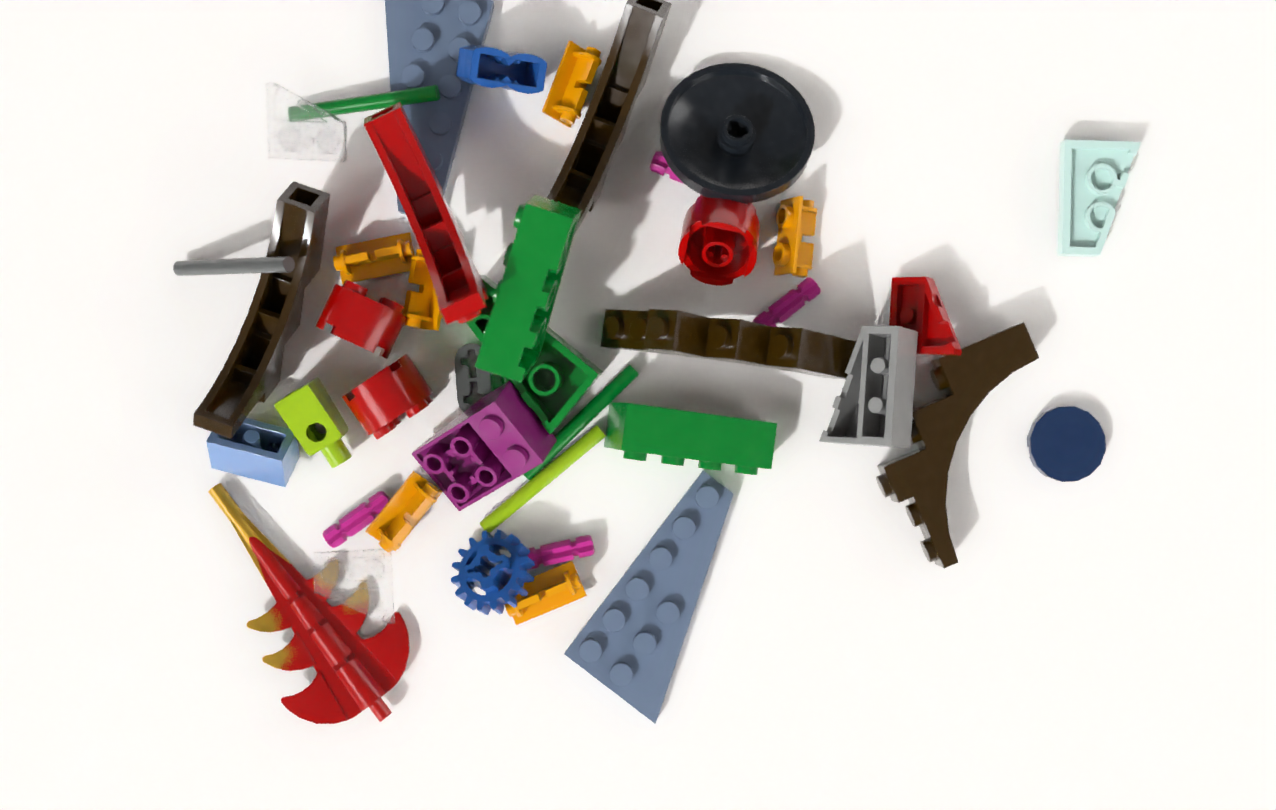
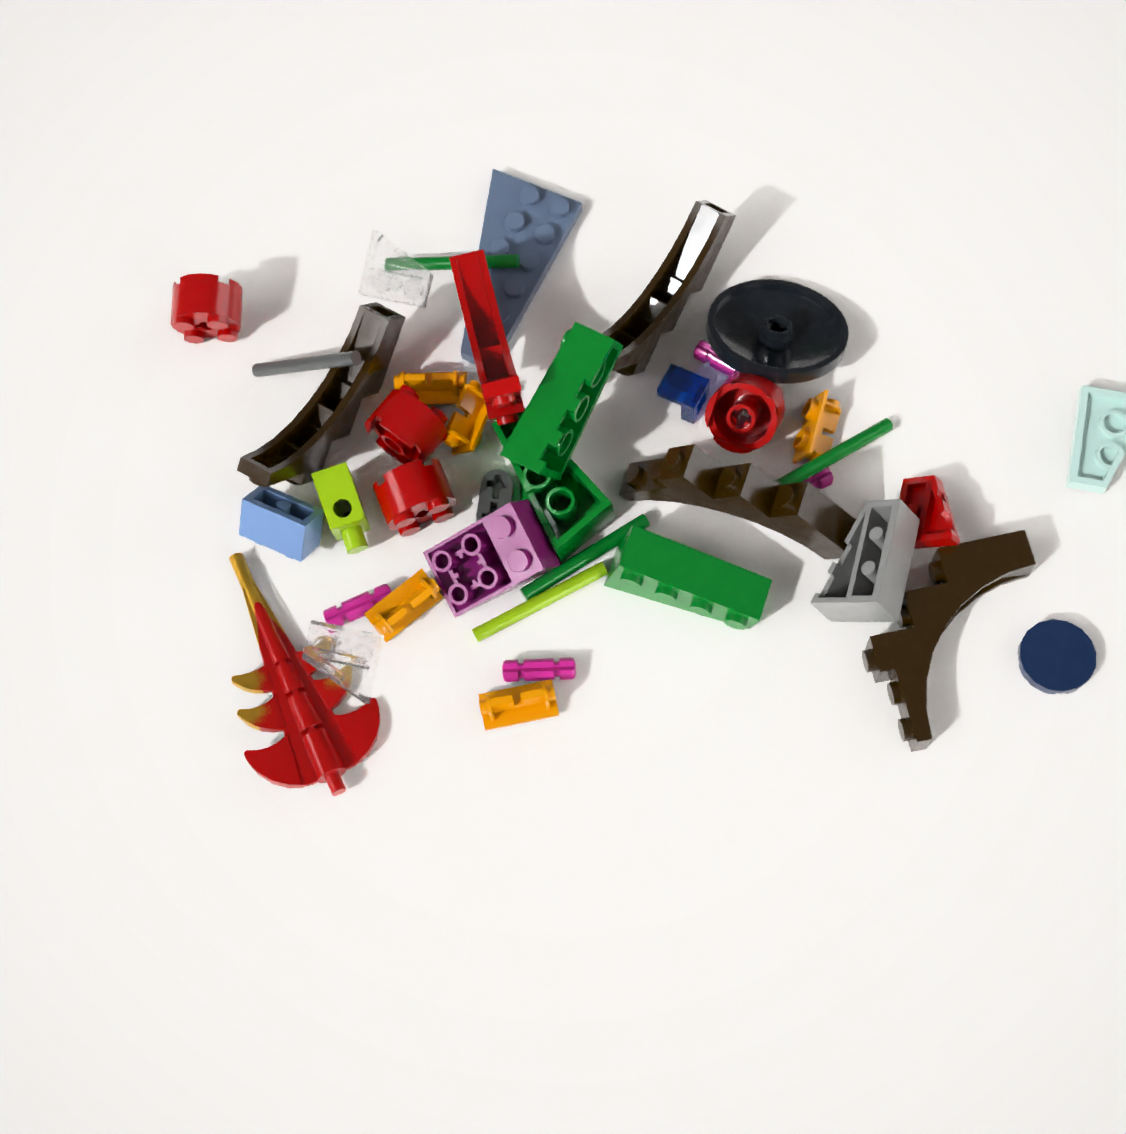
camera: 25 degrees right, 20 degrees down
(102, 213) = (206, 308): none -> red brick
(492, 572) = (474, 670): blue gear -> none
(502, 69) = (585, 253): blue brick -> none
(569, 85) = (636, 273): light orange hinge -> none
(645, 617) = (612, 746): sand blue wing -> none
(648, 219) = (686, 390): none -> clear blue panel
(818, 267) = (837, 453): none -> green bar

